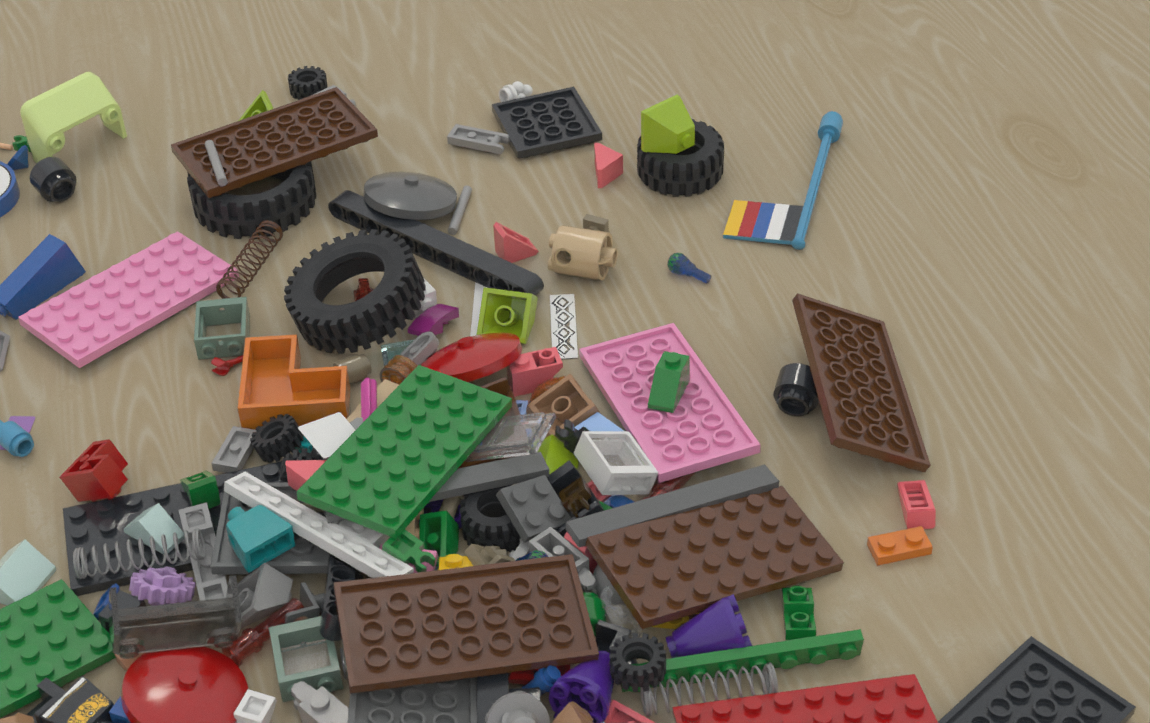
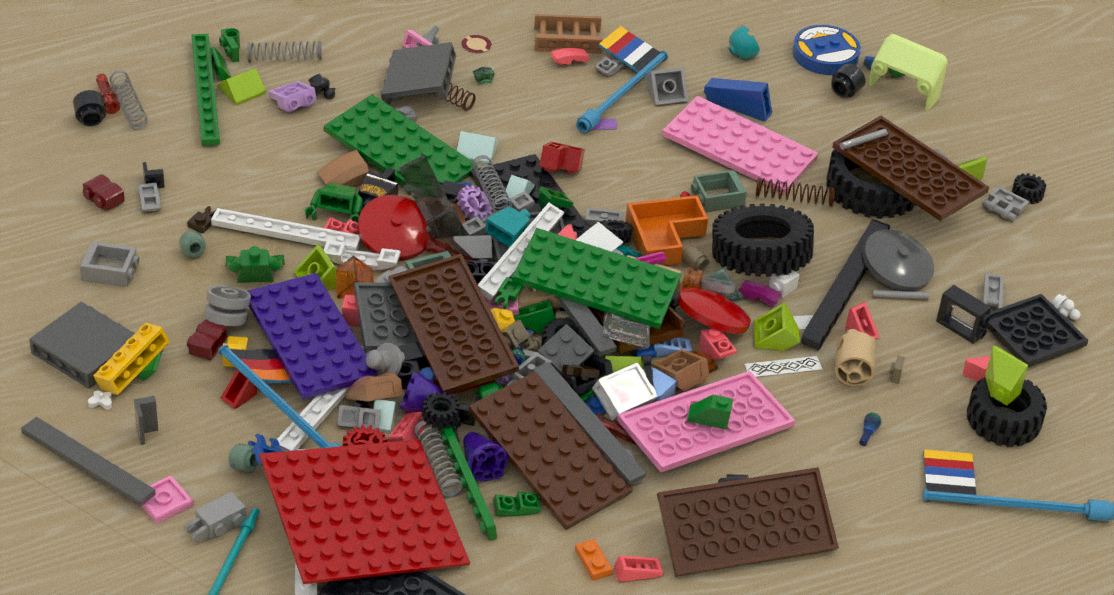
camera: 75 degrees right, 0 degrees up
(522, 158) = (963, 314): none -> black window

